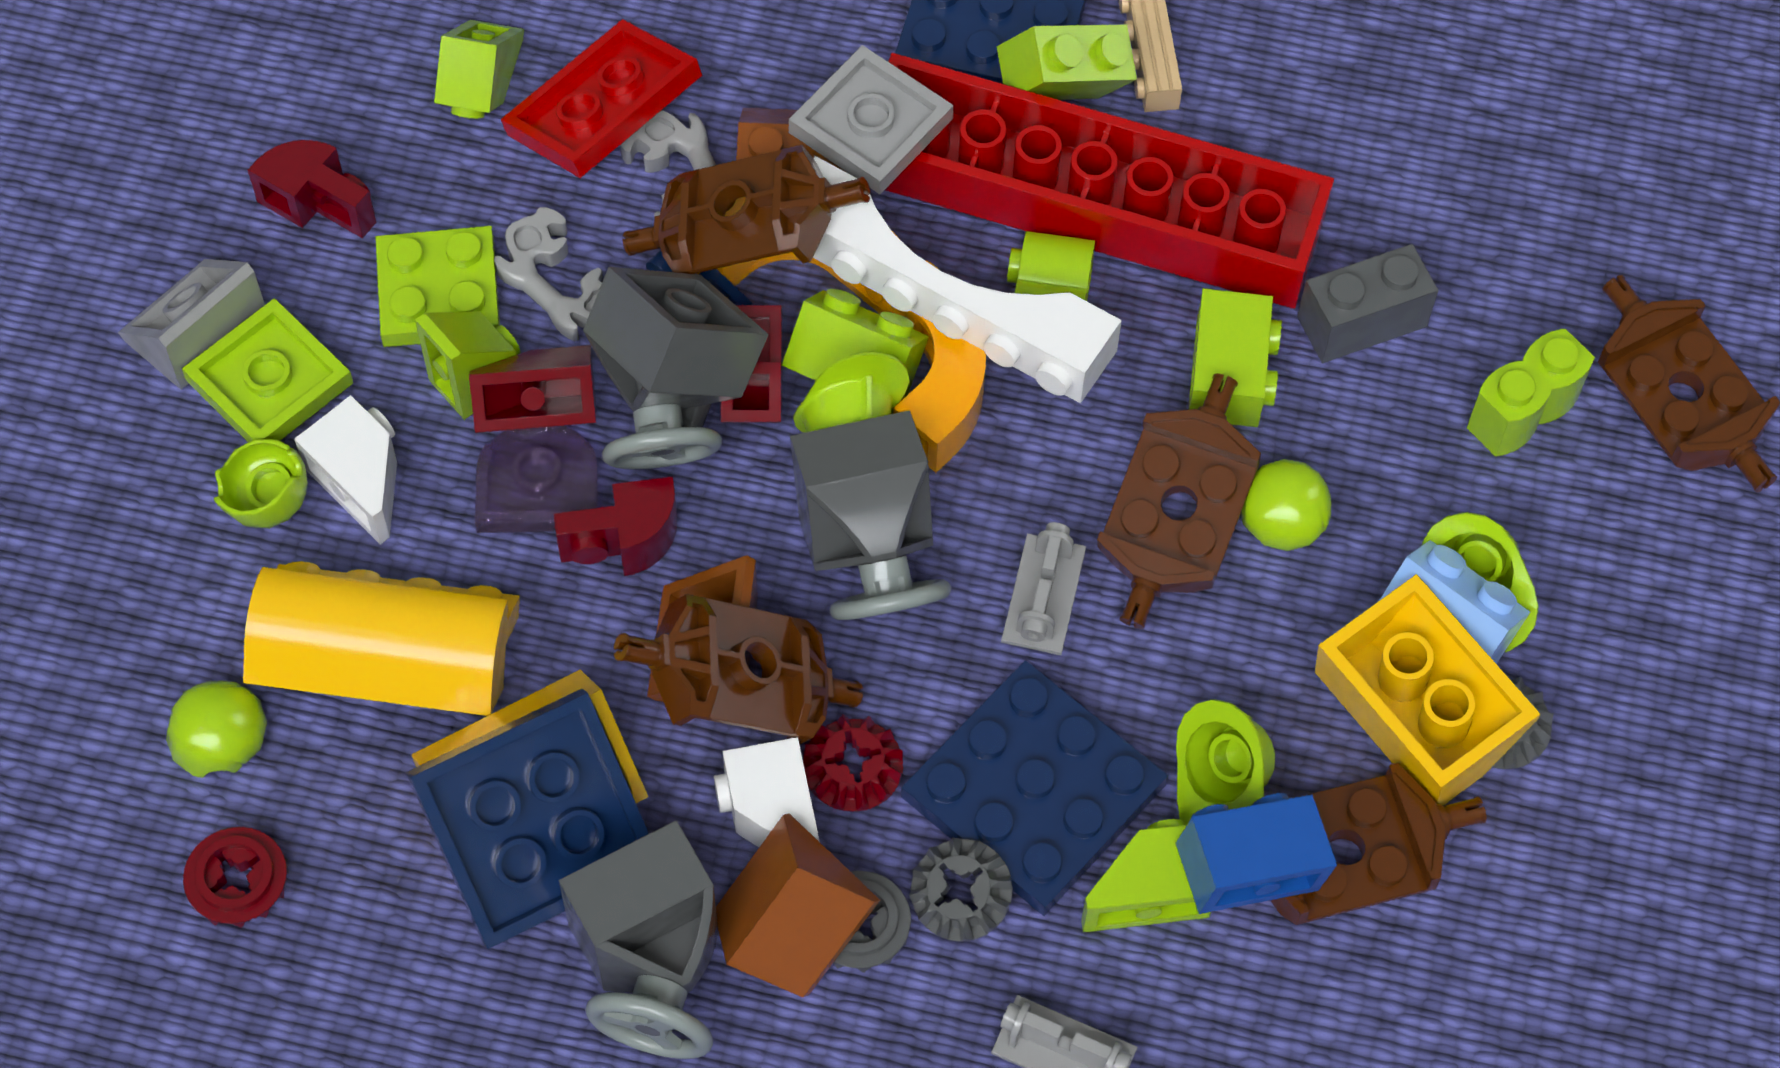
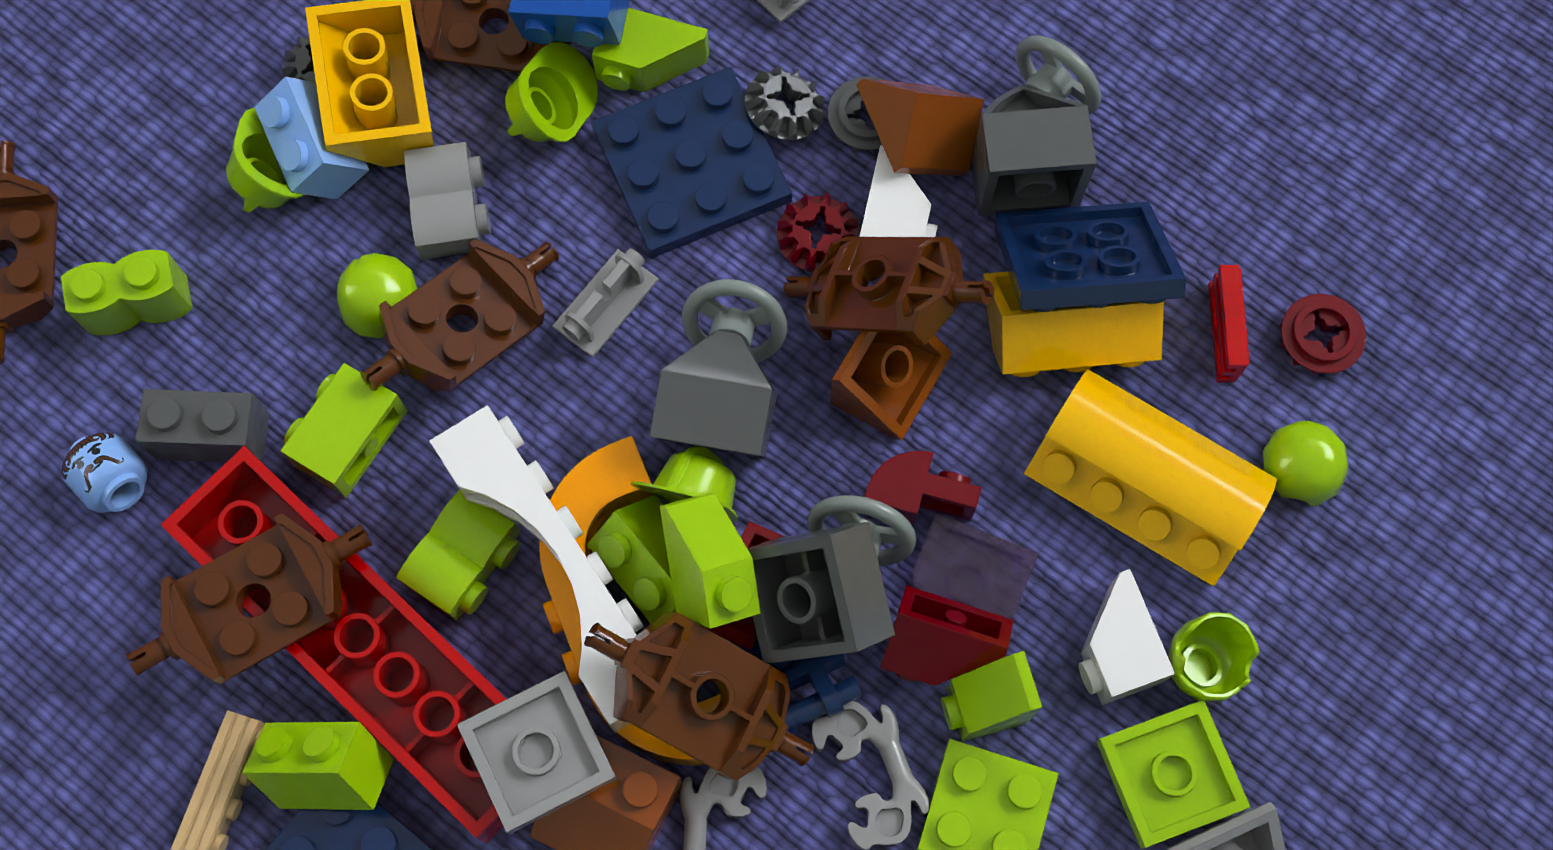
camera: 155 degrees left, 10 degrees up
(347, 835) = (1228, 323): none -> red tile
(790, 312) = (708, 563): none -> lime slope
(1210, 98) = (205, 612): none -> reddish brown plate
(1270, 617) = (444, 199): none -> light grey brick
(1436, 229) = (105, 472): none -> light blue head

